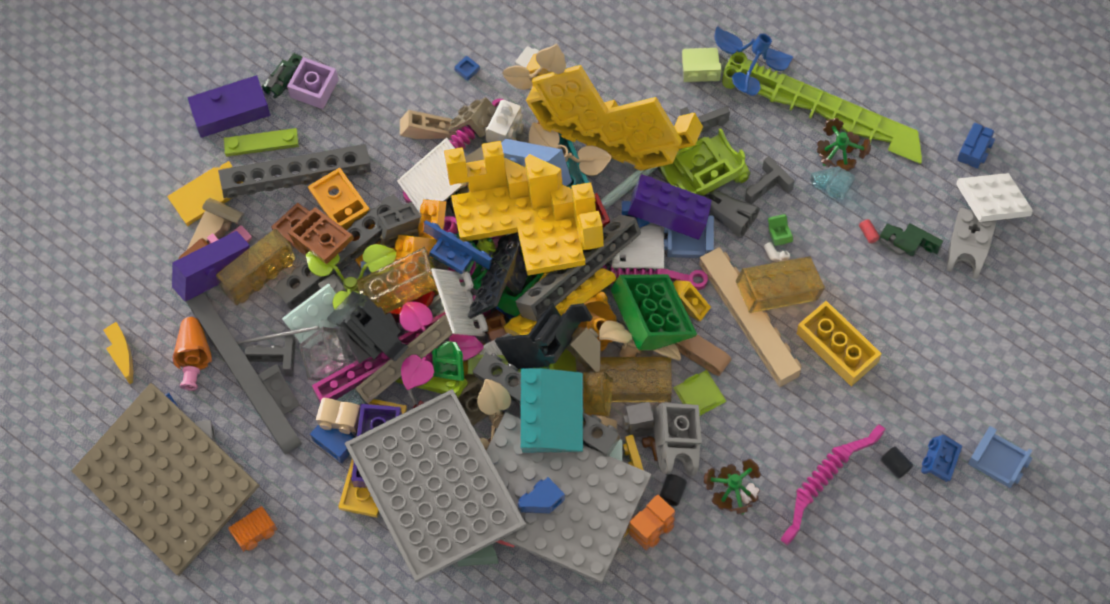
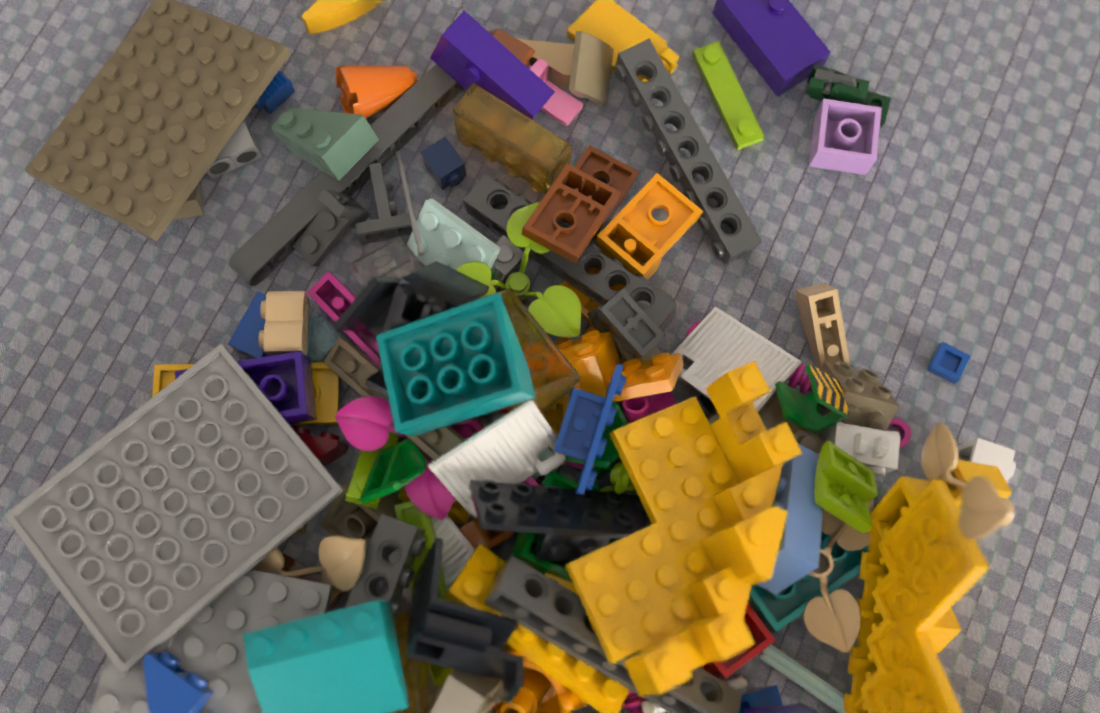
camera: 70 degrees right, 10 degrees up
(190, 378) = (324, 102): bright pink bush -> none
(220, 375) = (325, 138): none -> sand green wedge
(253, 529) = (104, 253): orange brick -> none
(256, 313) = (444, 163): none -> dark blue brick
(401, 302) = (453, 366): none -> teal slope
(473, 144) = (805, 409): none -> green piece
(523, 132) = (844, 487): none -> lime slope

